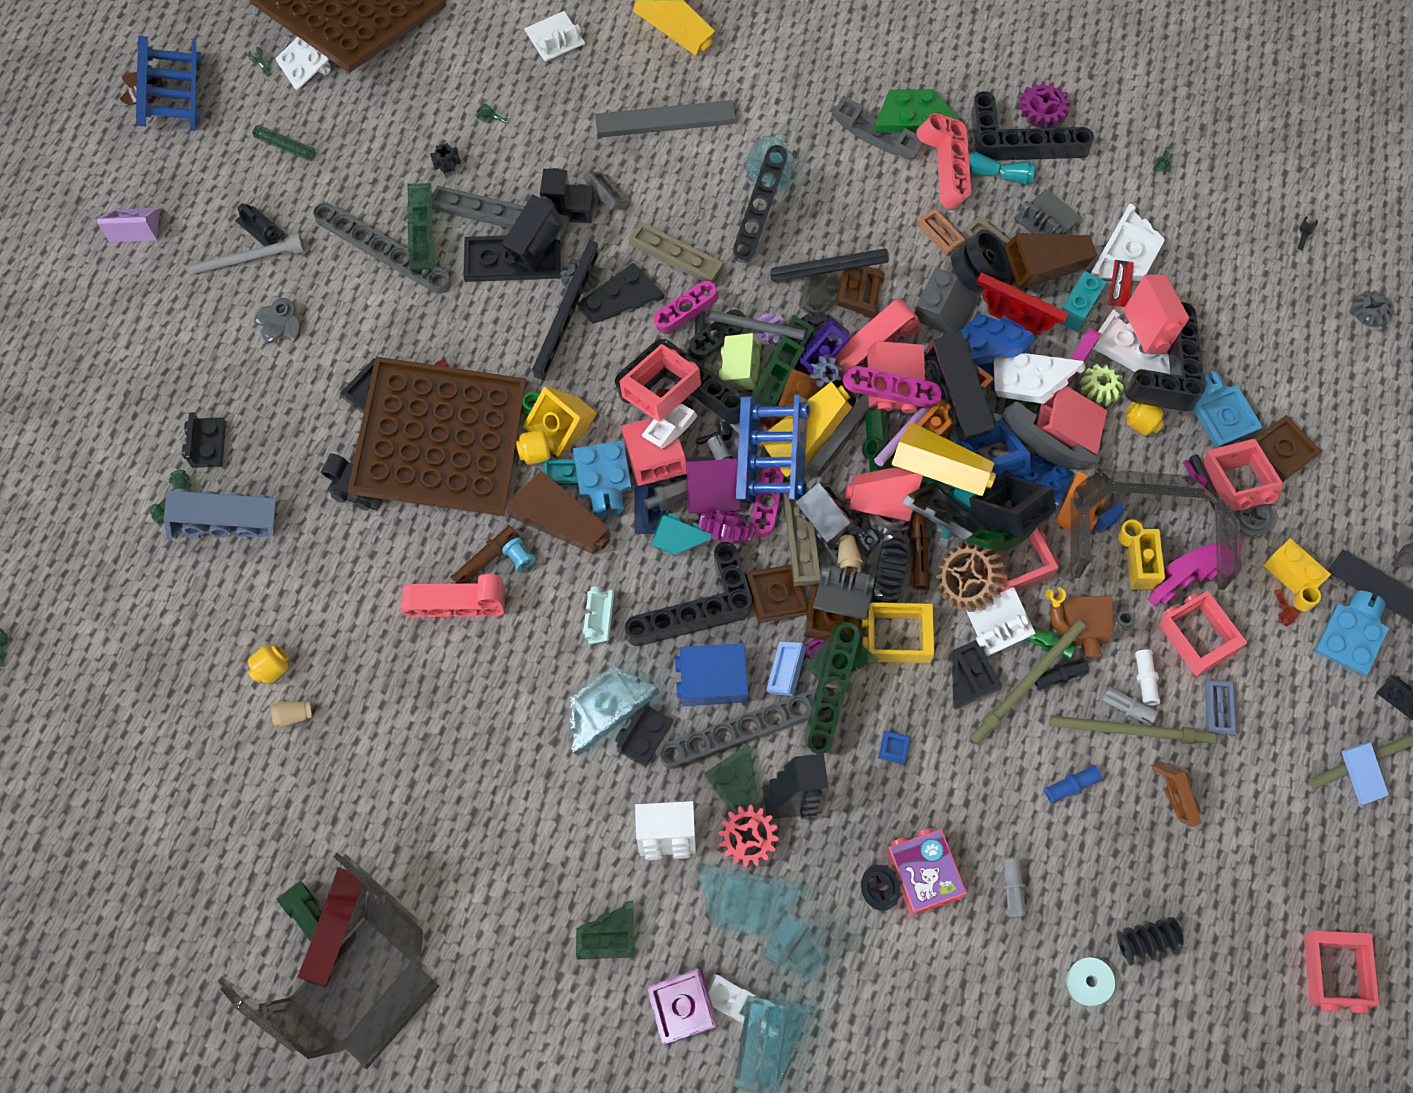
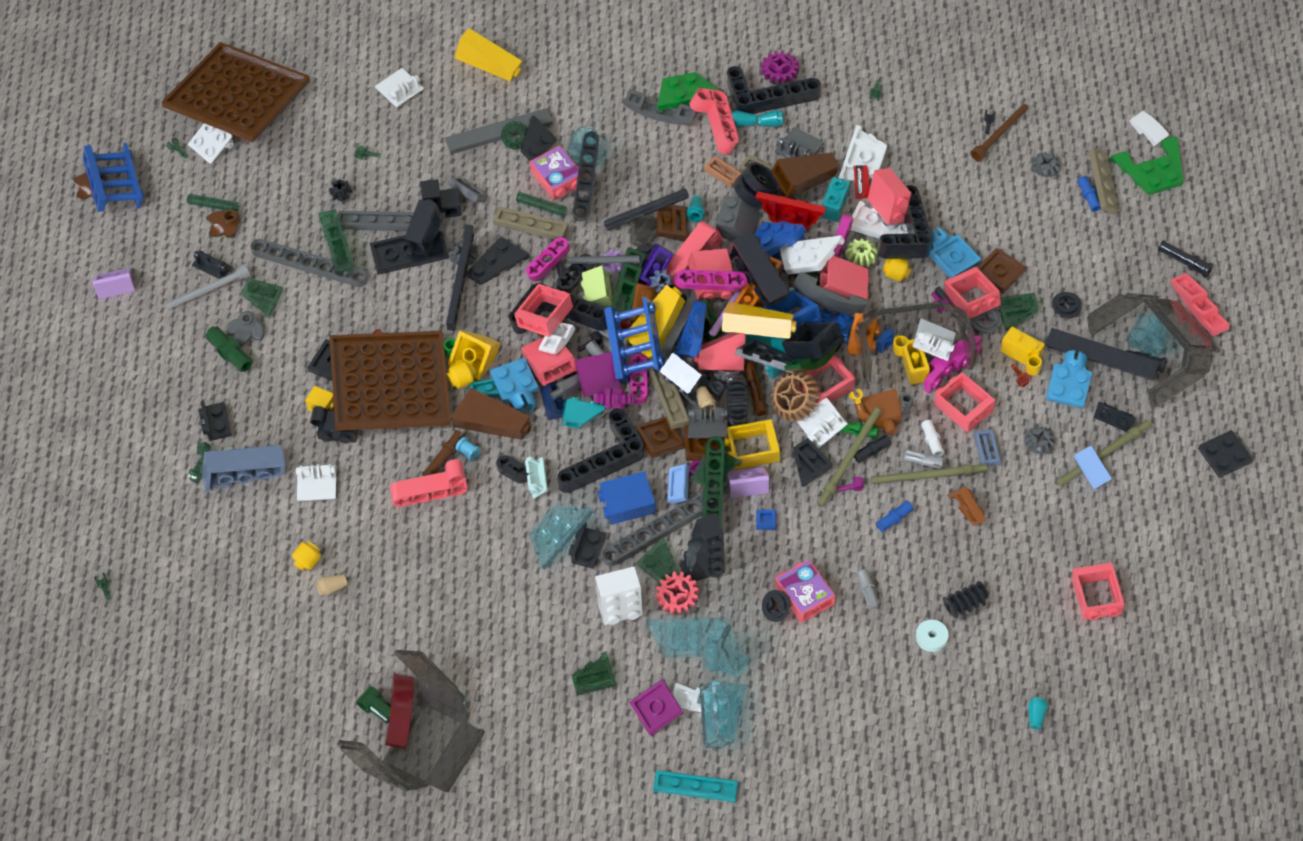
camera: 10 degrees left, 10 degrees down
(248, 345) = (229, 349): none -> dark green piece
(288, 173) = (222, 224): none -> reddish brown plate
(310, 558) = (316, 482): none -> white hinge
(312, 280) = (262, 295): none -> clear green wing
(342, 442) = (319, 397): none -> yellow brick
(567, 600) = (511, 471): none -> black beam
(672, 131) = (507, 138): none -> clear green gear
(696, 229) = (541, 204): none -> clear green axle
(709, 140) = (536, 139): none -> black wing
(723, 189) = (555, 172): none -> brick
(850, 459) = (691, 337): none -> blue plate
(882, 685) = (748, 482): none -> lavender slope
(894, 277) = (695, 210): none -> teal cone
(1030, 723) = (857, 485): none -> magenta hand
(1179, 536) = (934, 339): none -> white hinge
(1283, 711) = (1044, 445): none -> dark grey gear
(1286, 273) = (979, 152): none -> reddish brown piece
(1299, 510) = (1017, 309): none -> clear green wing
(1374, 510) = (1071, 299): none -> black gear

